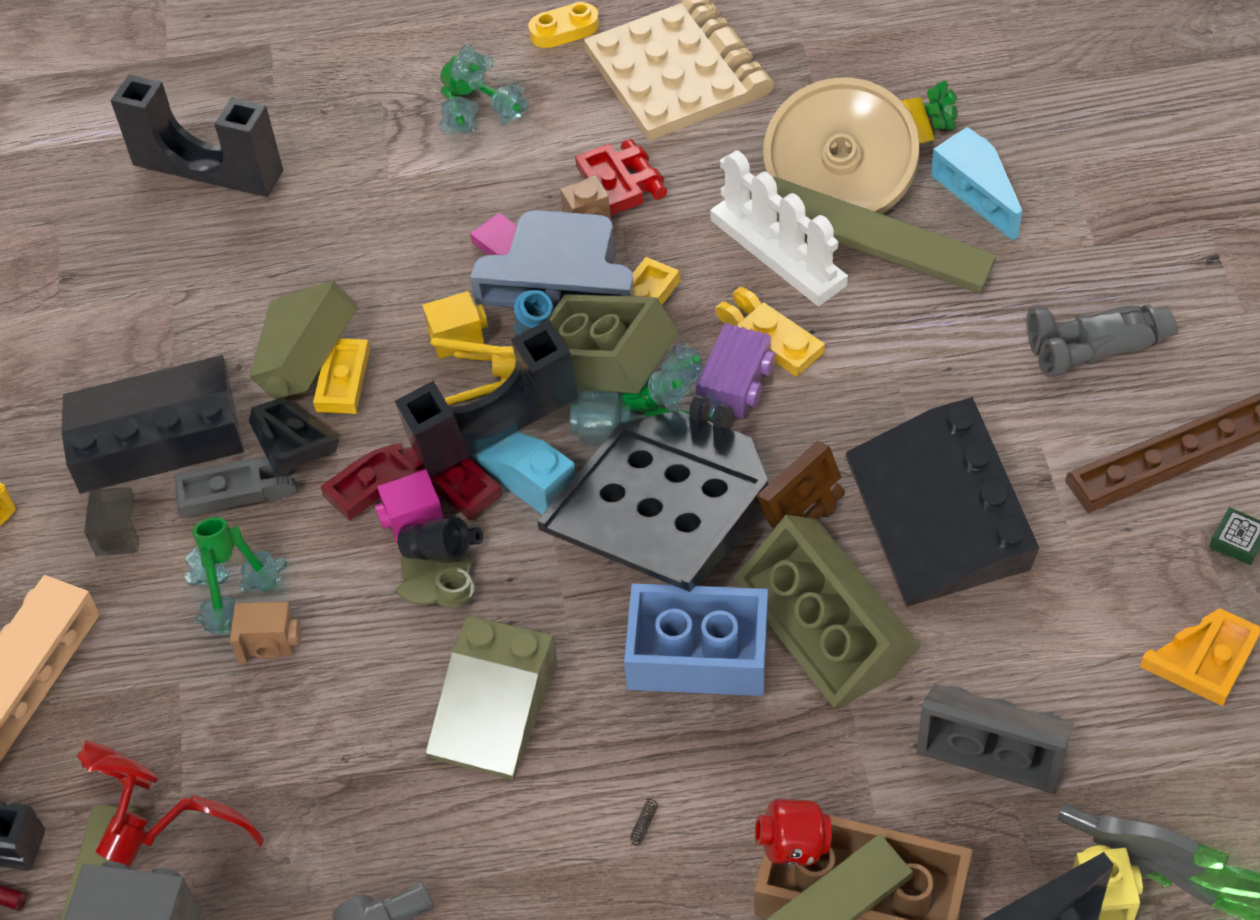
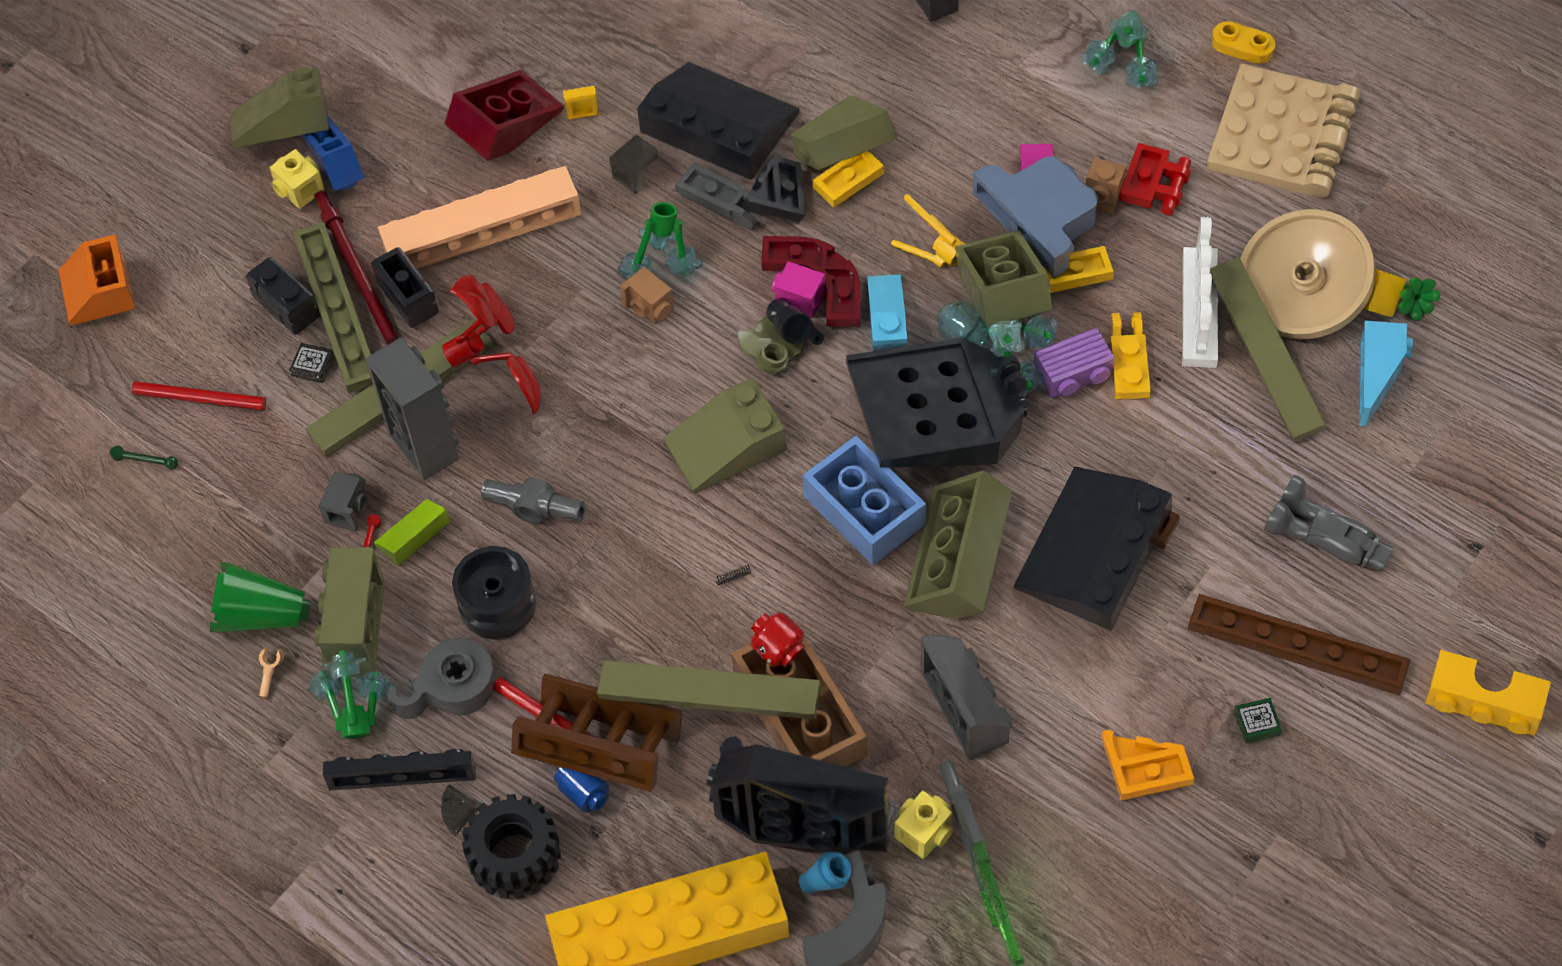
camera: 45 degrees right, 5 degrees up
(455, 320) = (945, 196): yellow brick -> none
(531, 310) = (993, 218): dark azure cone -> none
(536, 387) = (846, 259): black arch -> none
(804, 488) = (1023, 464): reddish brown plate -> none

